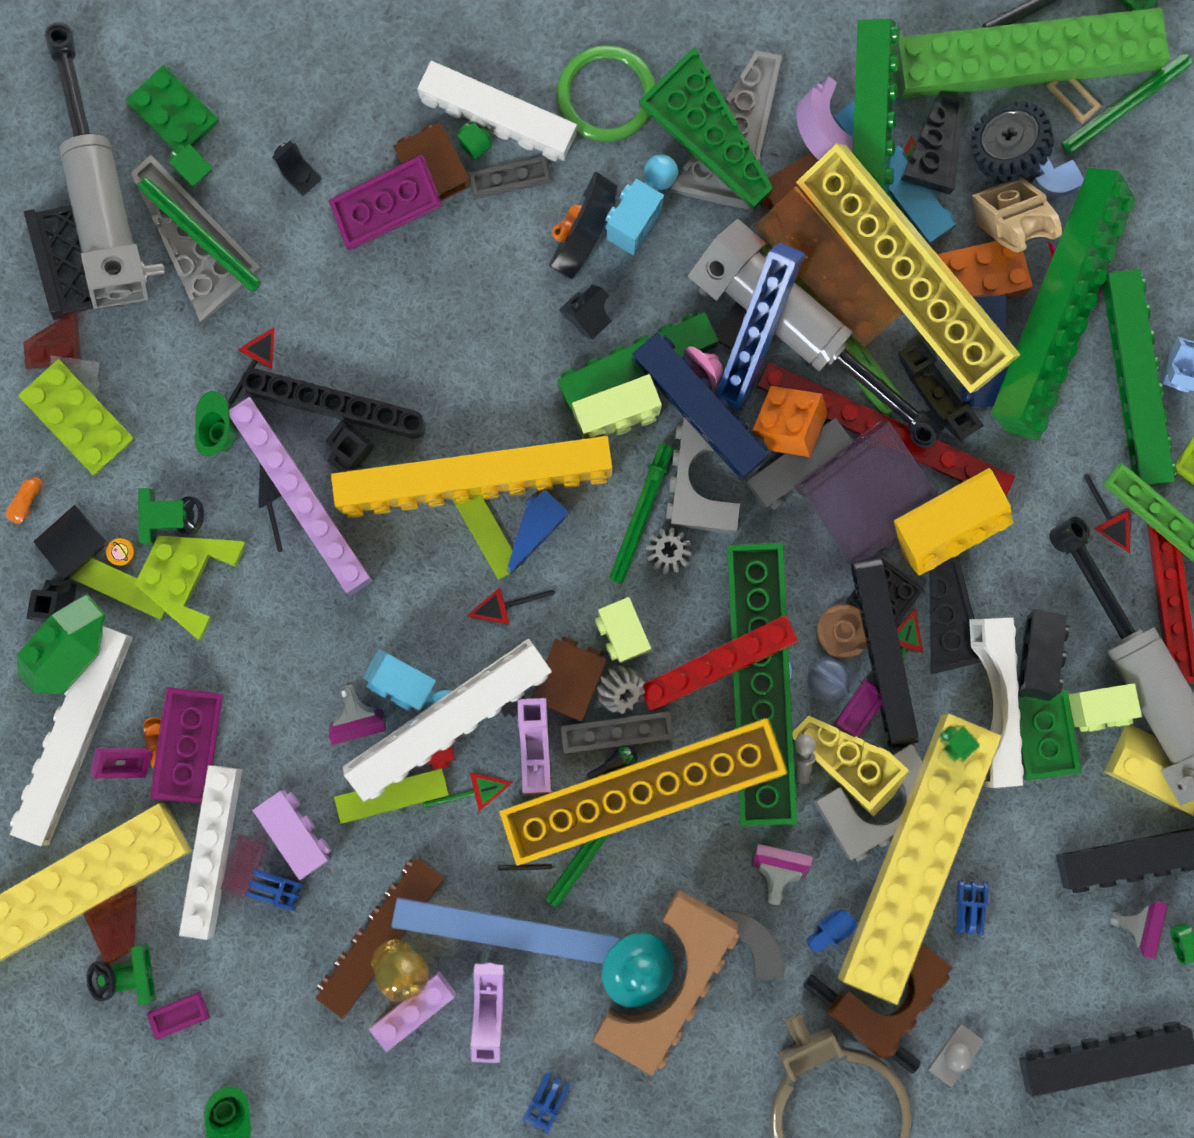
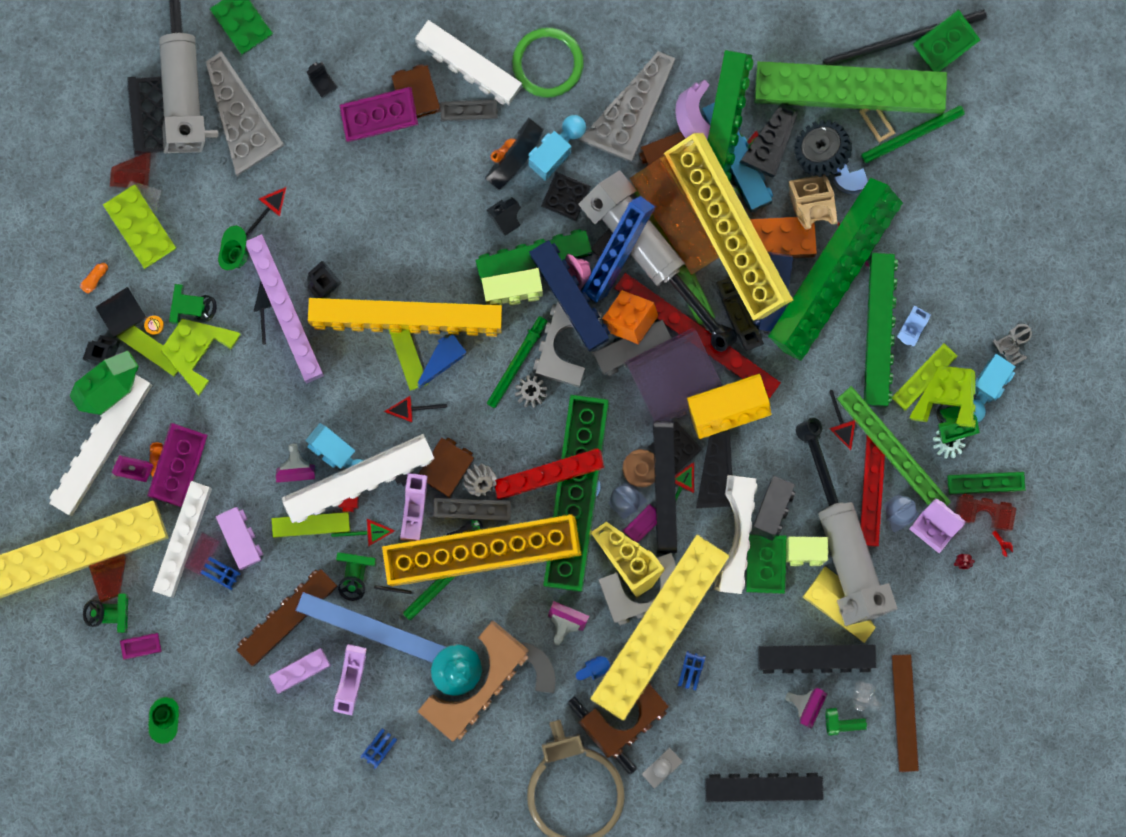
camera: 10 degrees right, 0 degrees up
(189, 164) = (247, 63): green brick -> none
(199, 234) = (245, 113): green axle -> none
(324, 395) = (311, 242): black beam -> none
(399, 971) = (296, 640): clear yellow hair -> none
(465, 856) = (354, 574): none -> green piece
(474, 140) = (448, 80): green plate -> none
(623, 631) = (489, 440): yellowish green brick -> none
(665, 271) = (565, 195): none -> black tile
(700, 119) = (608, 94): green wing -> none
(803, 758) = (596, 549): light grey pin -> none
(958, 743) = (697, 554): green plate -> none

